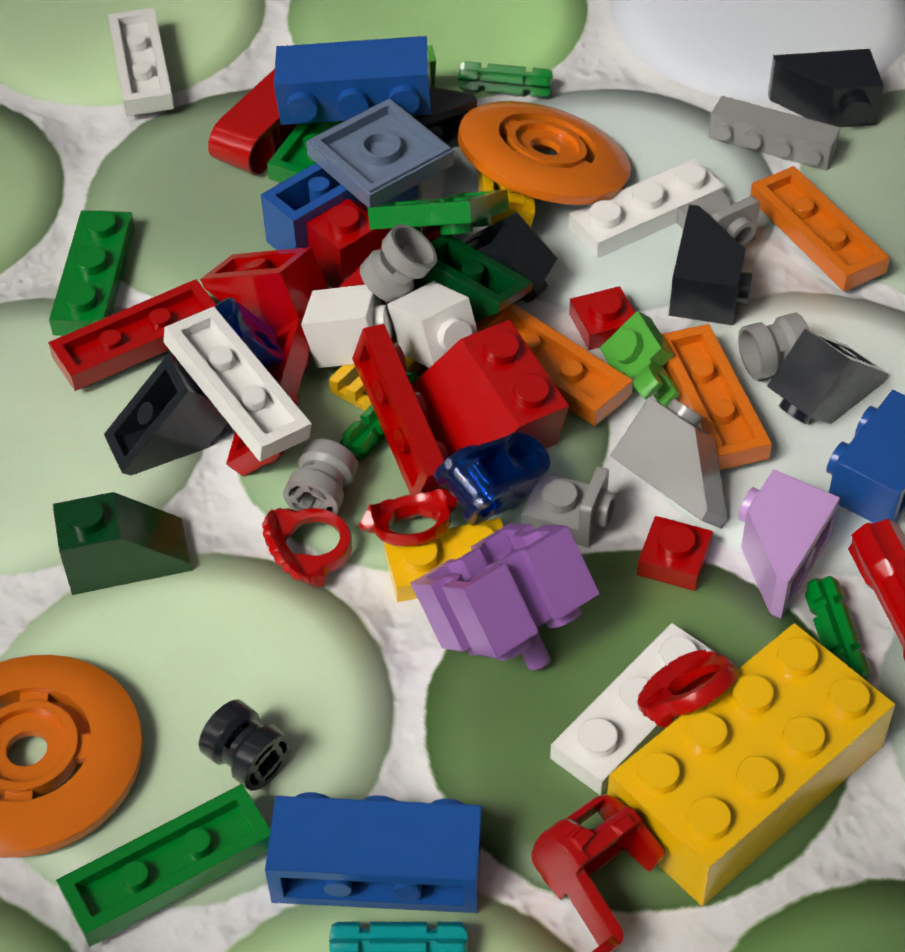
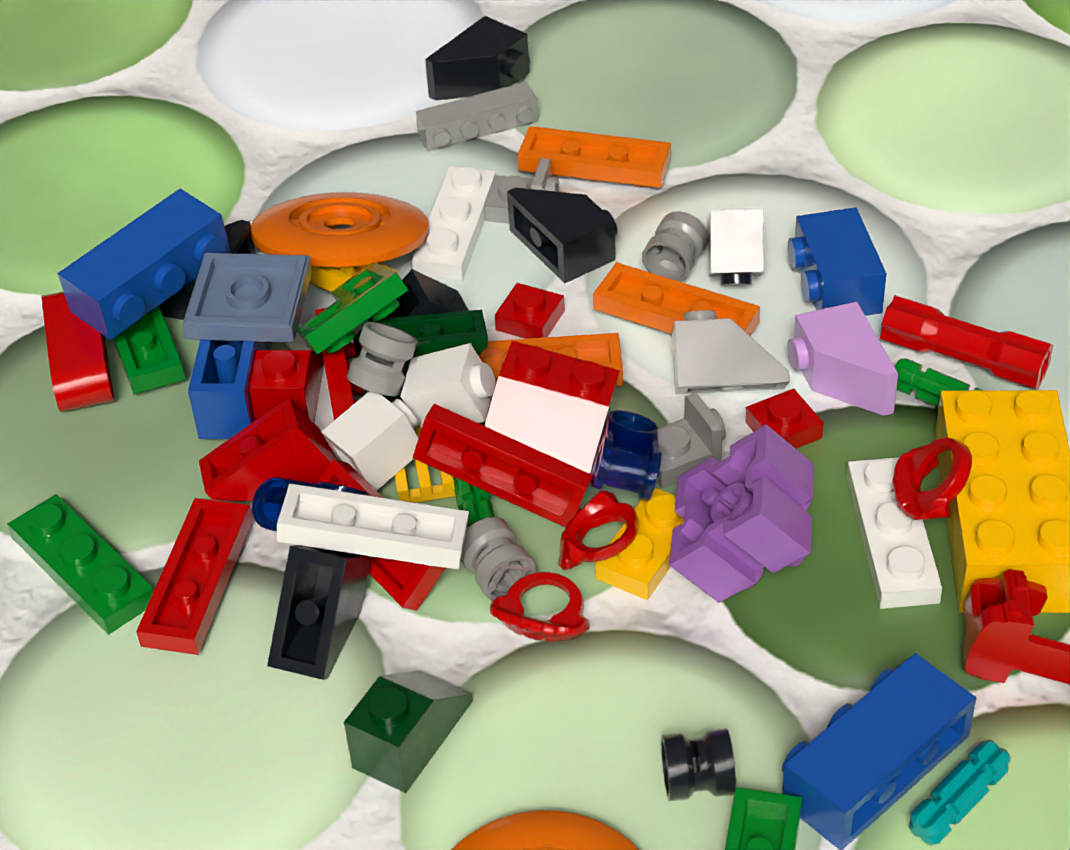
camera: 45 degrees left, 5 degrees down
(505, 79) = (237, 198): green axle -> none
(640, 354) = (600, 312): bright green plate -> none

